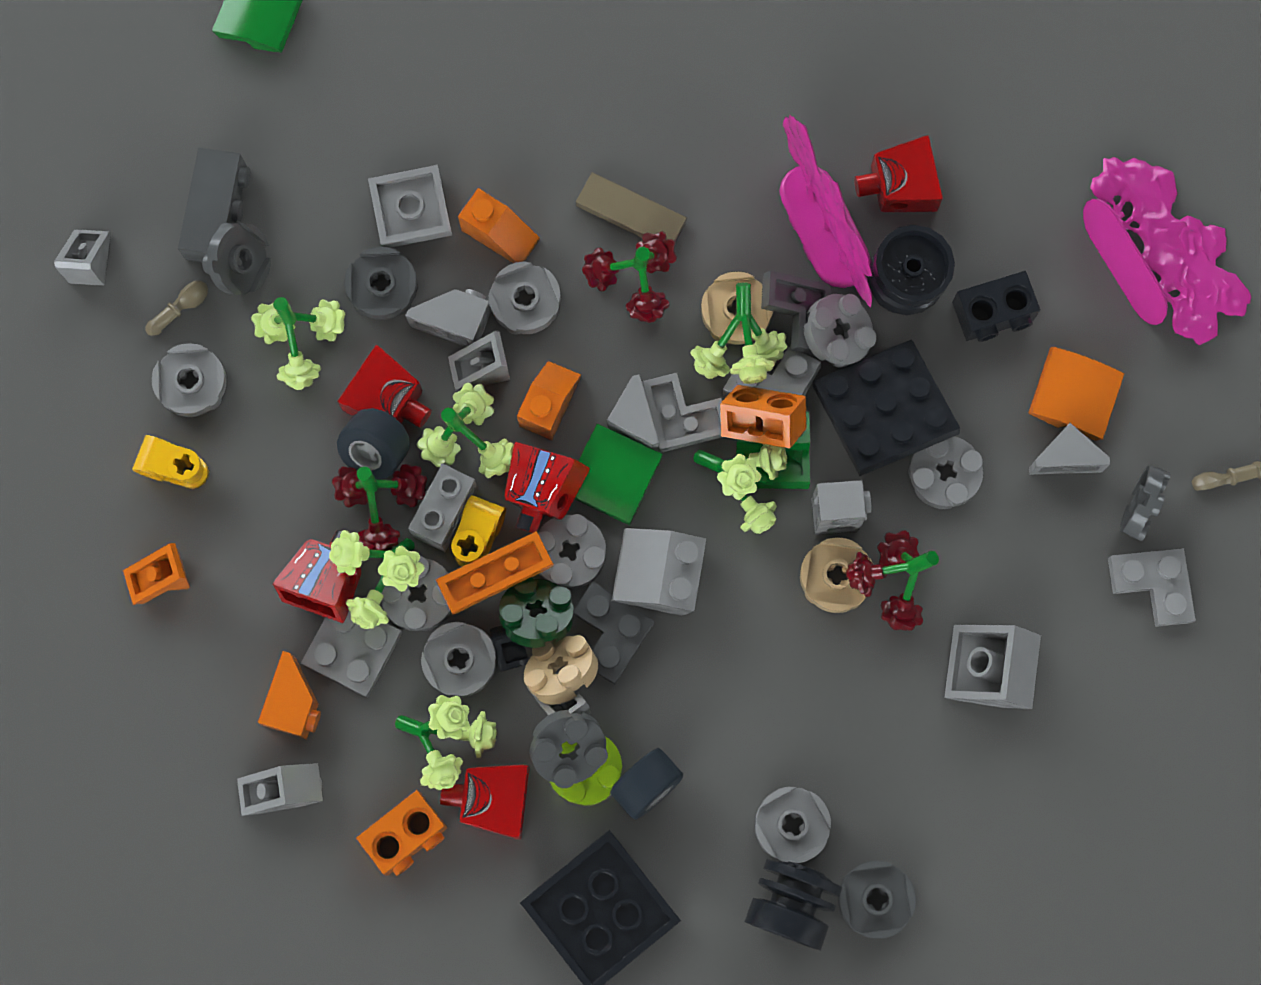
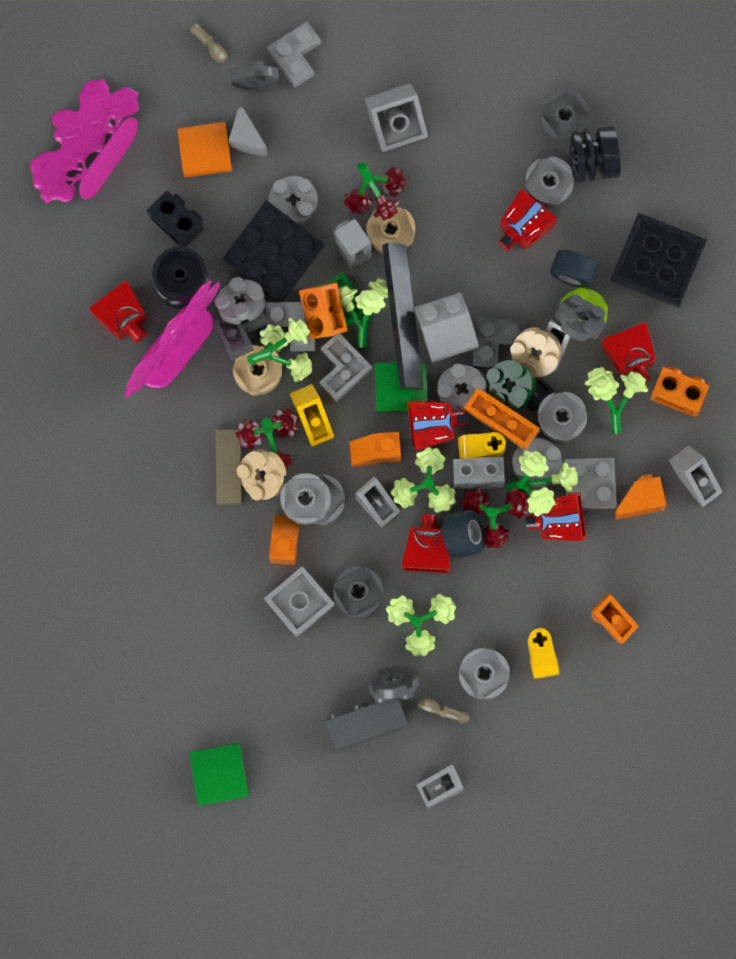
camera: 115 degrees left, 0 degrees up
(452, 316) = (355, 533): light grey slope -> none
(536, 292) = (296, 488): none -> light grey plate
(593, 238) = (250, 474): none -> tan plate
(633, 417) = (359, 394): light grey slope -> none
(640, 342) = (312, 415): none -> yellow slope
(703, 519) = (402, 316): none -> black tile
(751, 756) = (525, 222): none -> red torso

